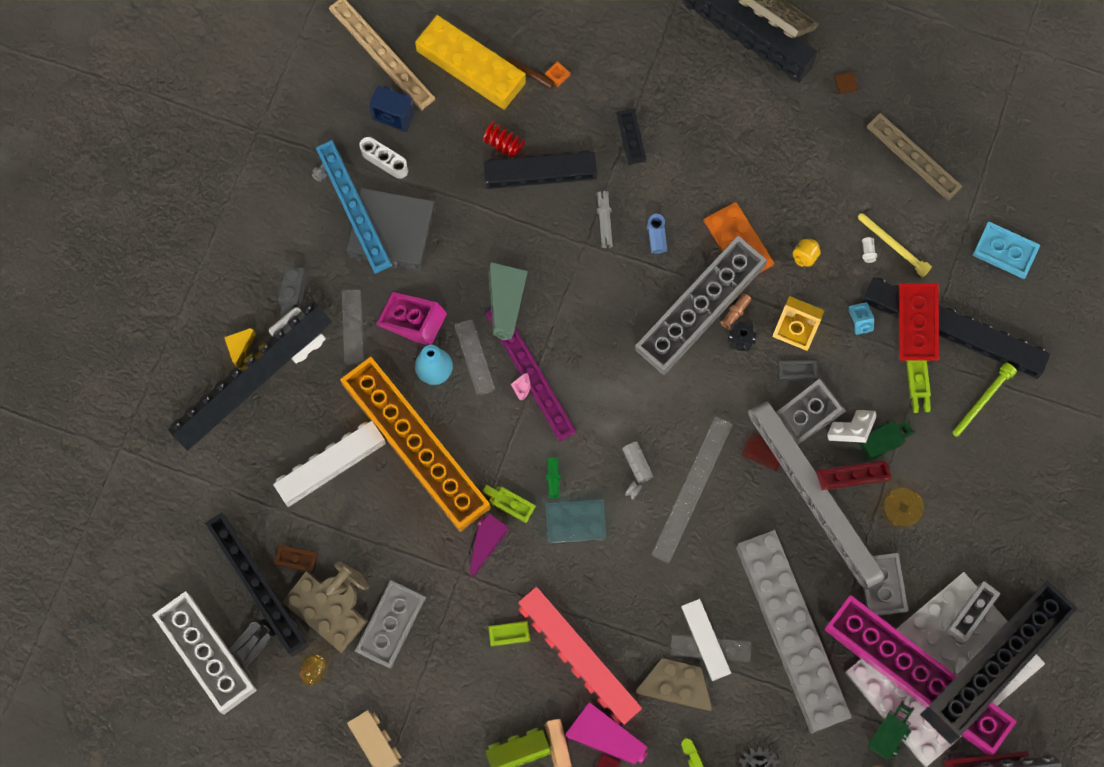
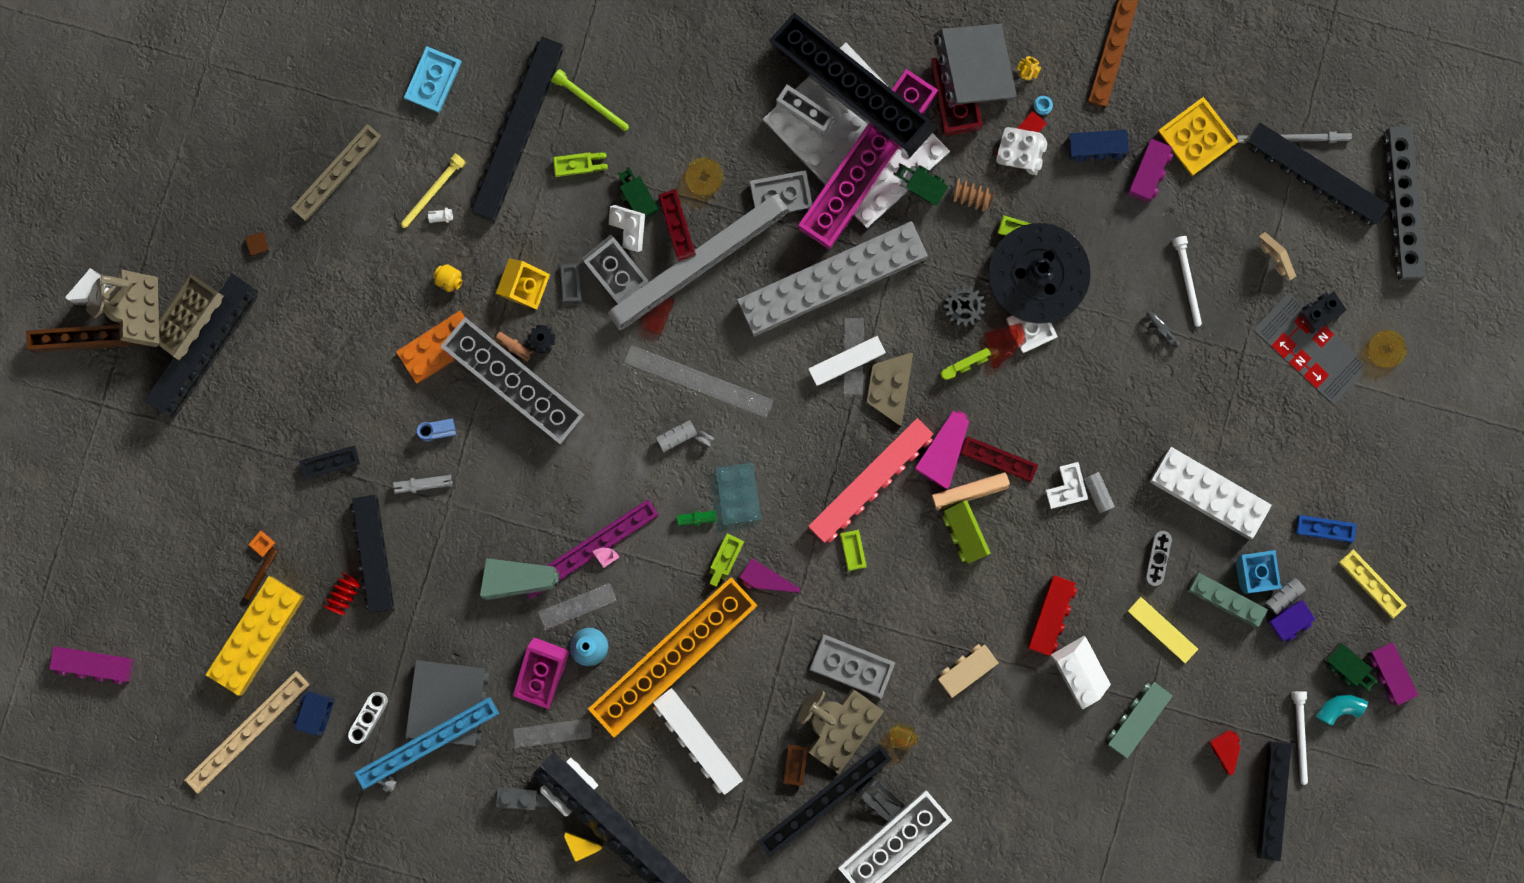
camera: 90 degrees left, 10 degrees up
(862, 318) = (513, 221): medium azure bracket -> none
(919, 322) = (518, 165): red plate -> none

